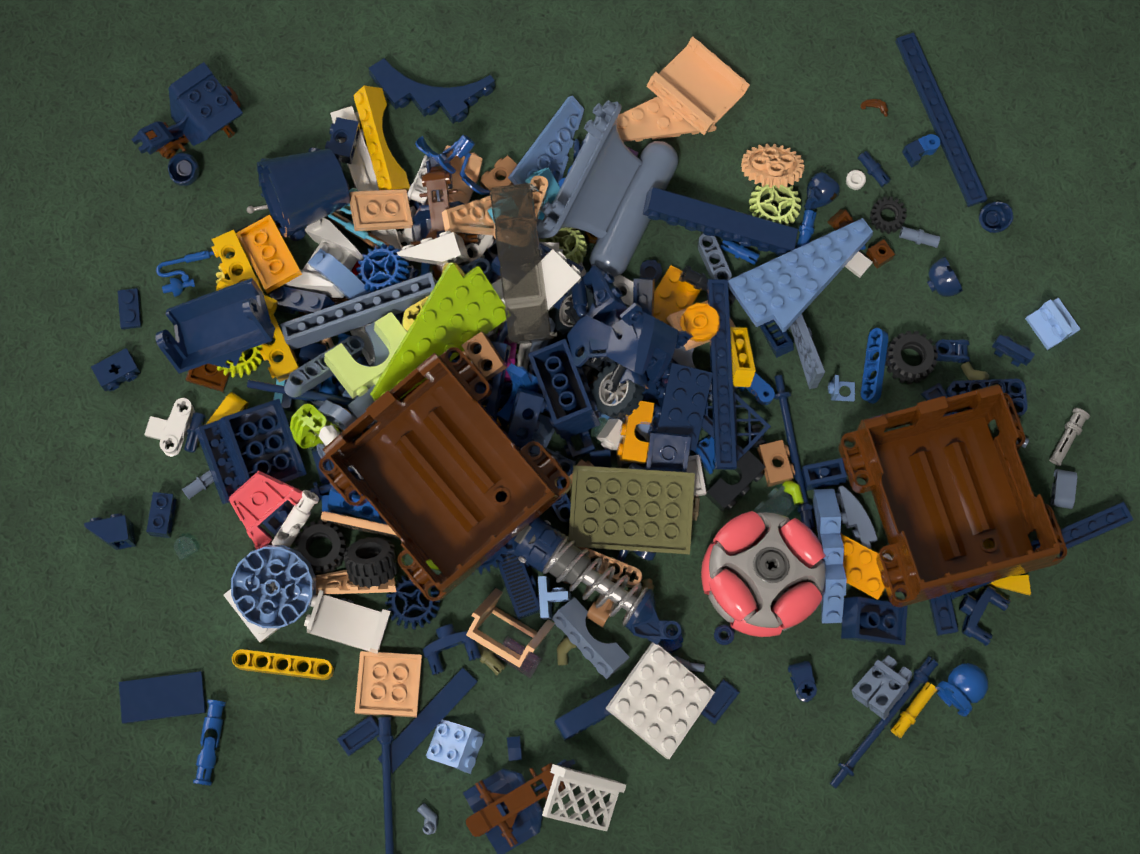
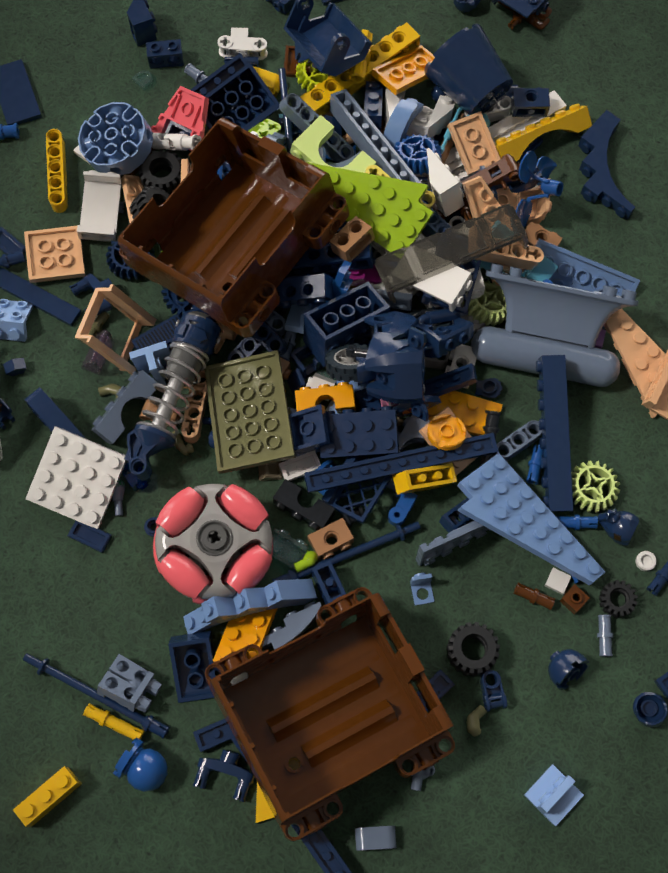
camera: 80 degrees right, 5 degrees down
(176, 285) = (364, 18): blue piece -> none
(772, 166) = (630, 472): light nougat gear -> none
(803, 677) = (123, 607): dark blue piece -> none
(840, 219) = (599, 554): reddish brown slope -> none
(869, 289) = (534, 596): none -> reddish brown pin
(874, 346) = (434, 616): blue beam -> none
(974, 784) = (47, 797): none -> yellow brick
(1019, 353) = (510, 744): dark blue plate -> none
(1019, 399) = (462, 733): dark blue beam -> none
(1075, 429) = (444, 836): light grey pin -> none

